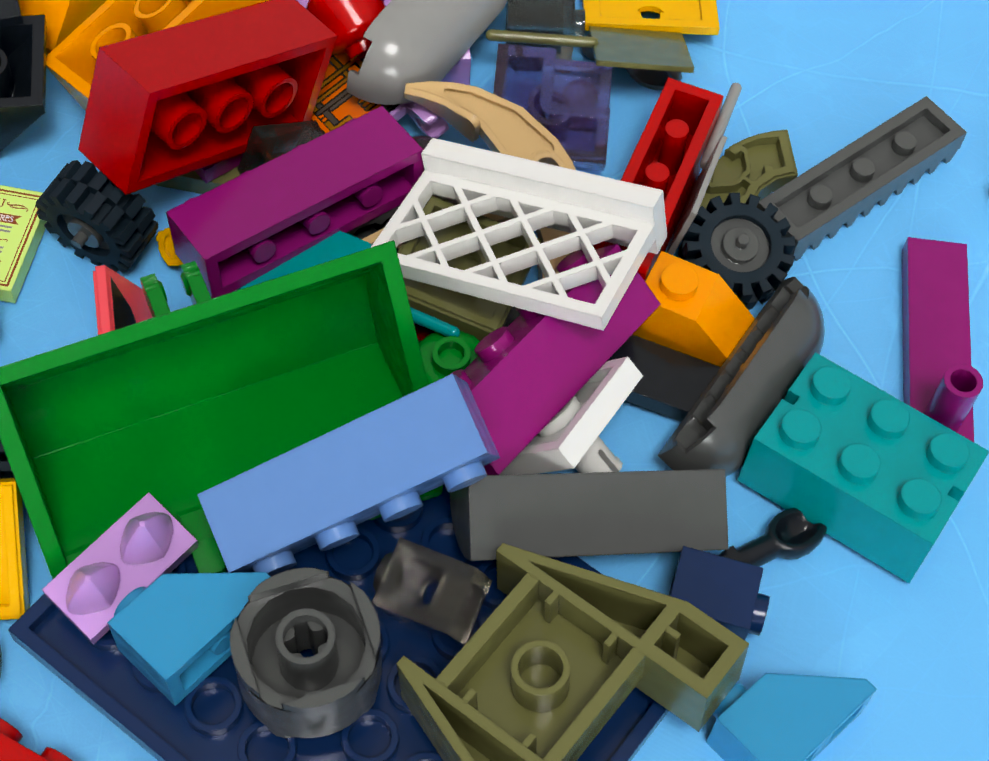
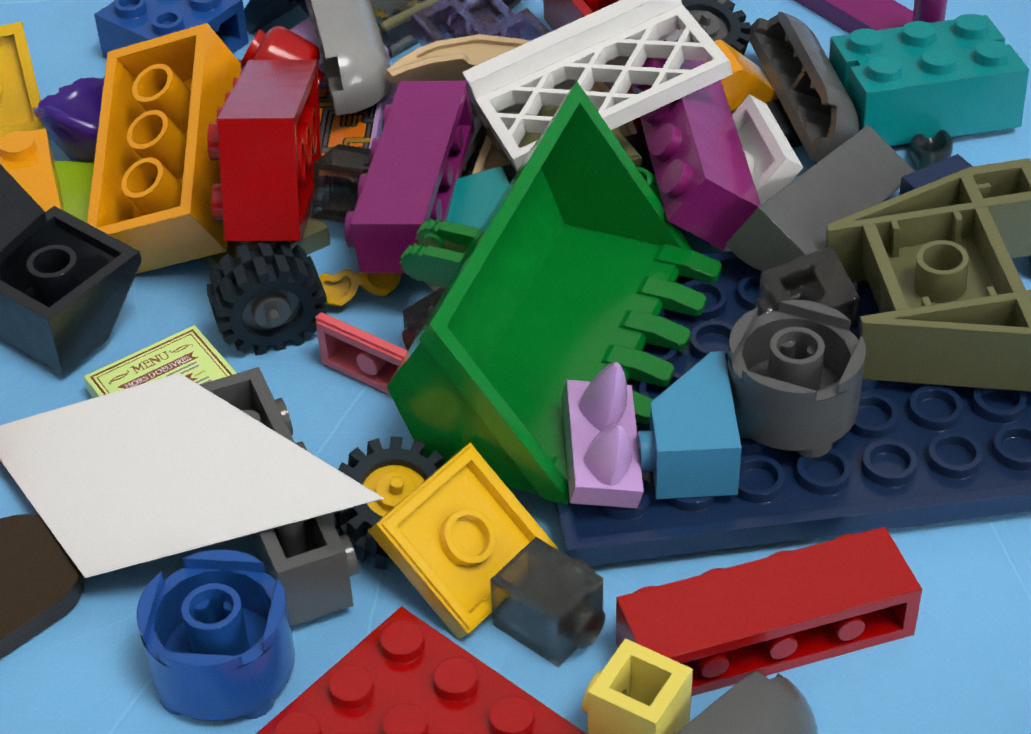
camera: 40 degrees left, 15 degrees down
(350, 477) = (694, 258): medium blue brick -> none

